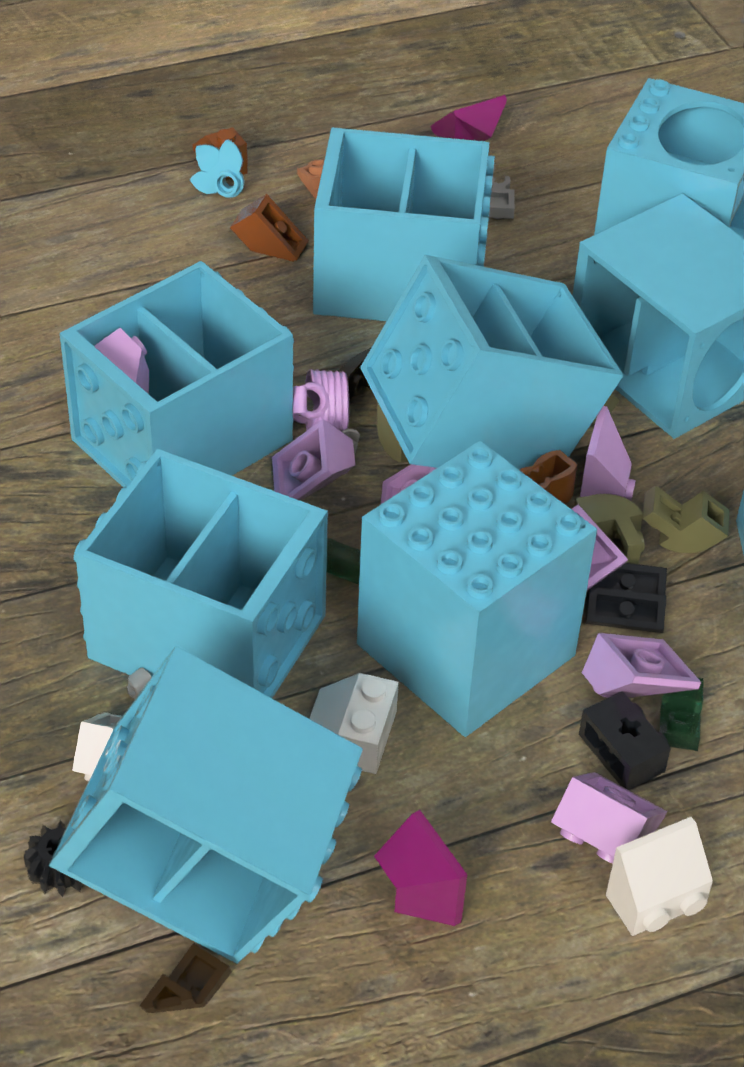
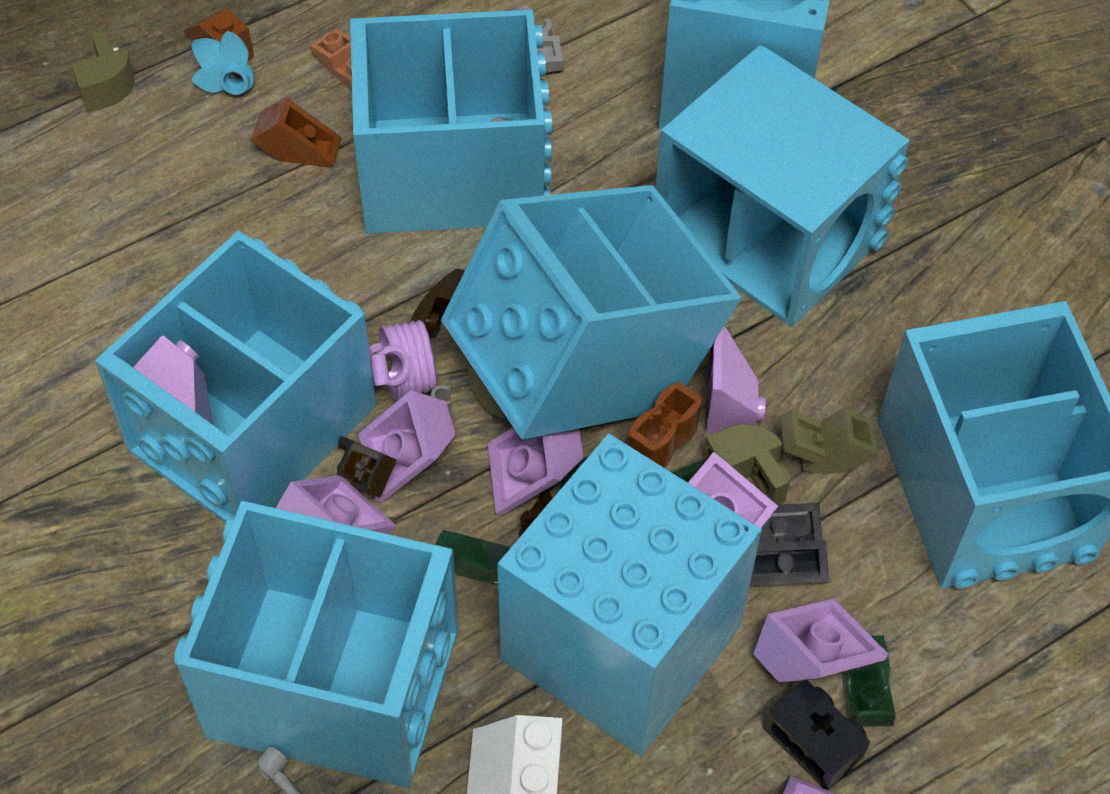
camera: 10 degrees left, 10 degrees up
(117, 167) = (104, 78): none -> olive brick
(272, 475) = (364, 466): none -> dark brown slope

